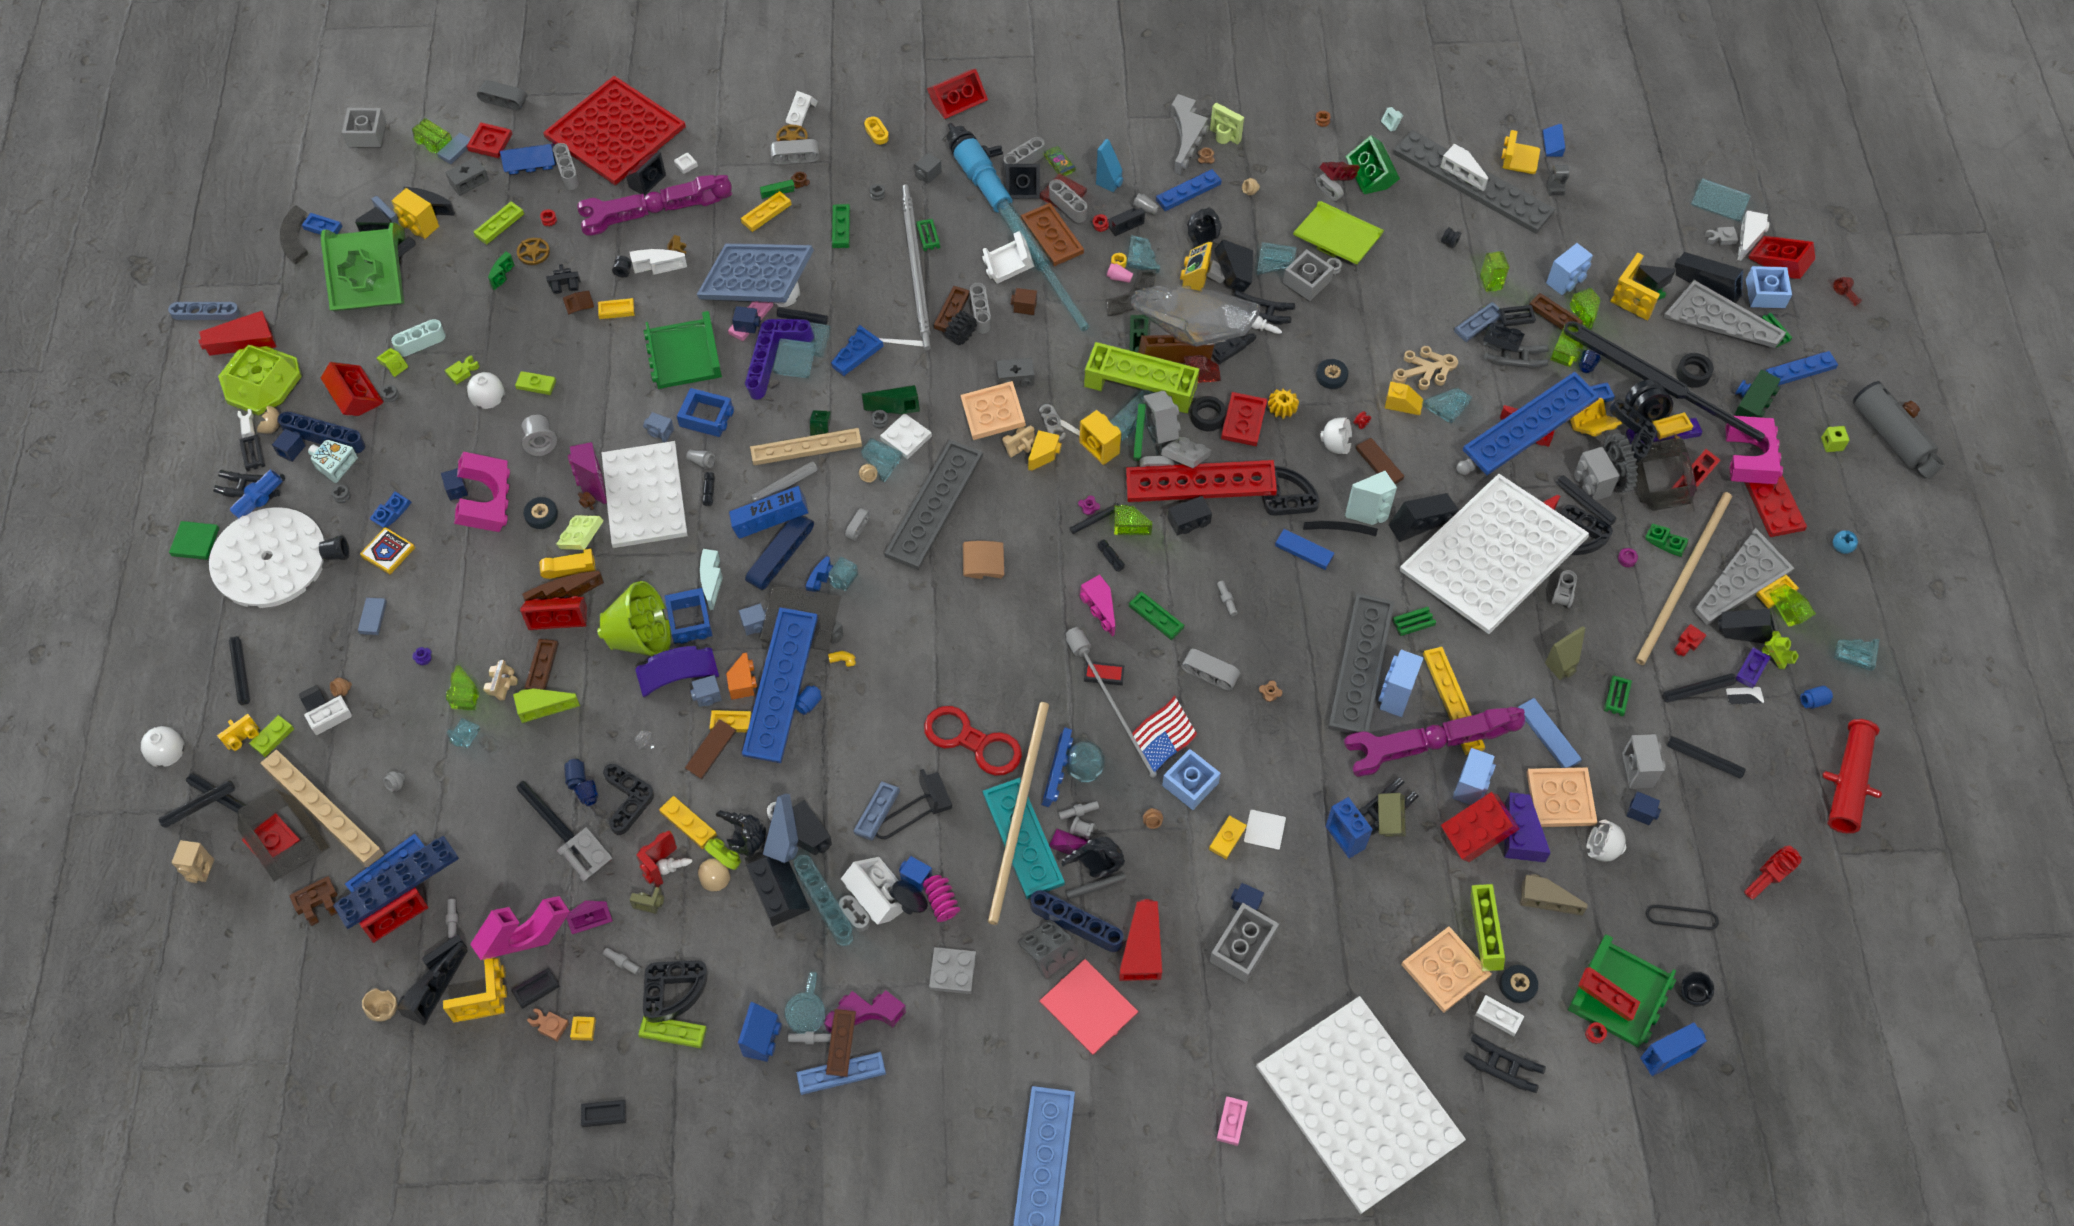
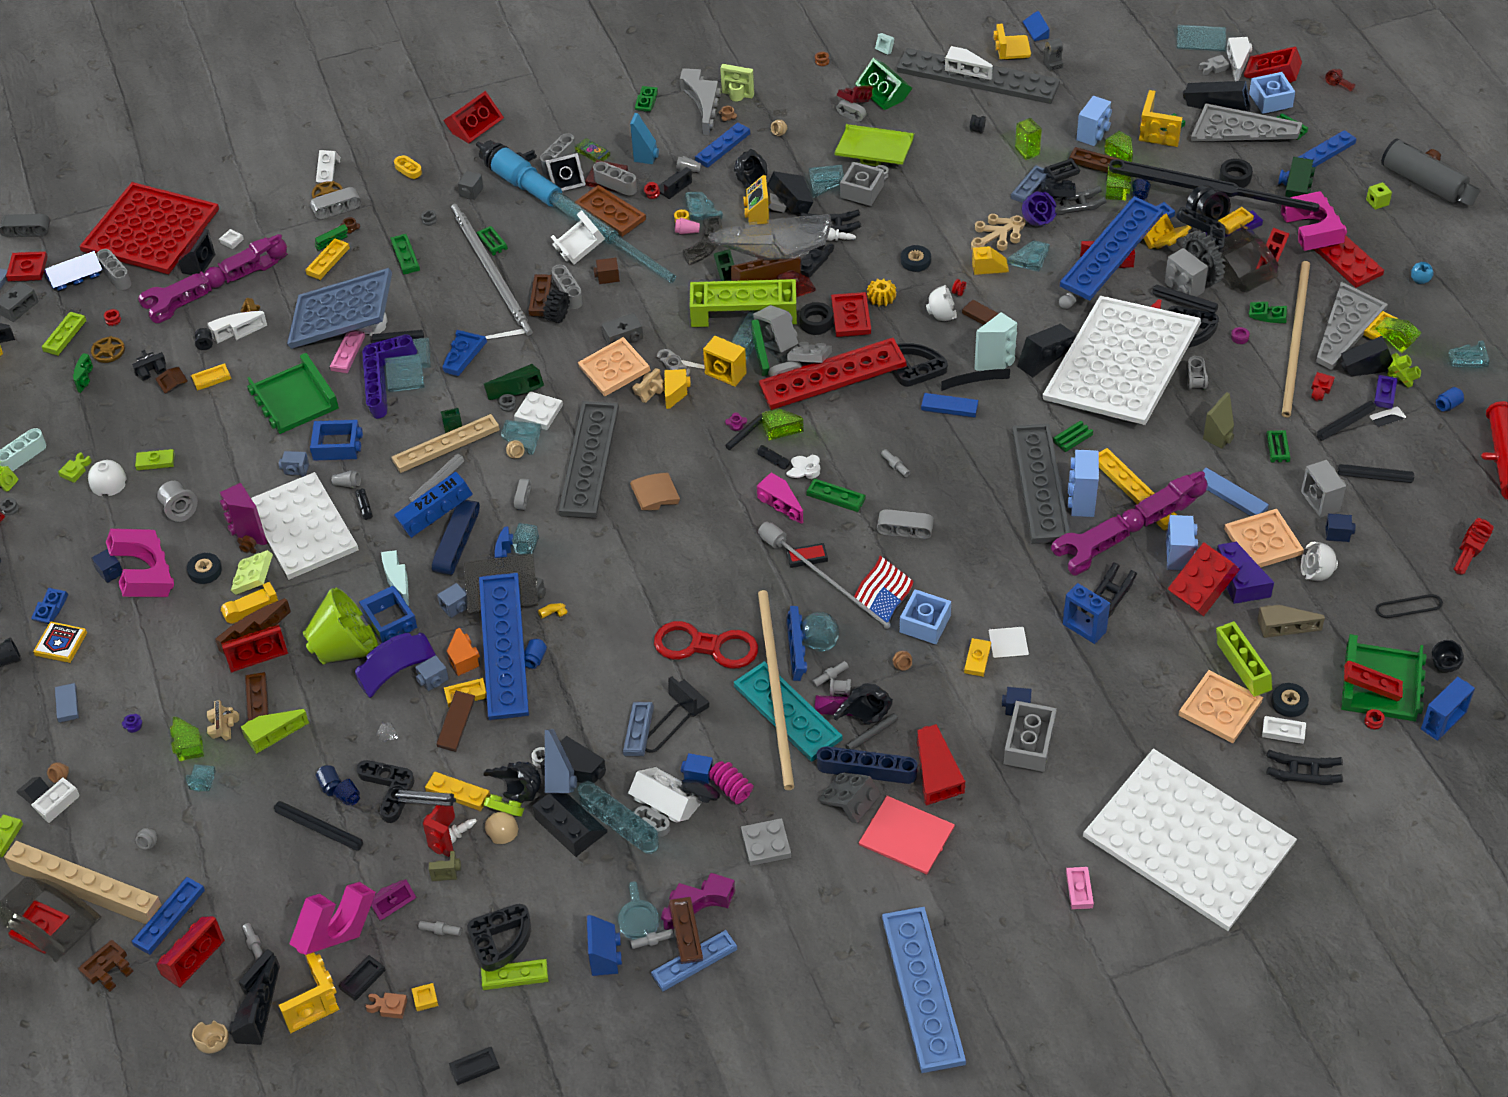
camera: 15 degrees left, 10 degrees down
(395, 882) = (186, 920): dark blue bracket -> none
(590, 850) = (371, 841): light grey plate -> none
(649, 827) = (424, 797): none -> axle
(746, 319) = (346, 351): dark blue brick -> none
(1133, 117) = (646, 99): none -> green slope
(1137, 575) = (805, 467): none -> white plate
(1189, 515) = (834, 404): black brick -> none
(1270, 696) = (967, 527): medium nougat plate -> none
(1392, 814) = (1119, 594): olive hinge -> none
(1475, 355) = (1039, 208): none -> dark purple cylinder
(1654, 277) = (1172, 106): black slope -> none

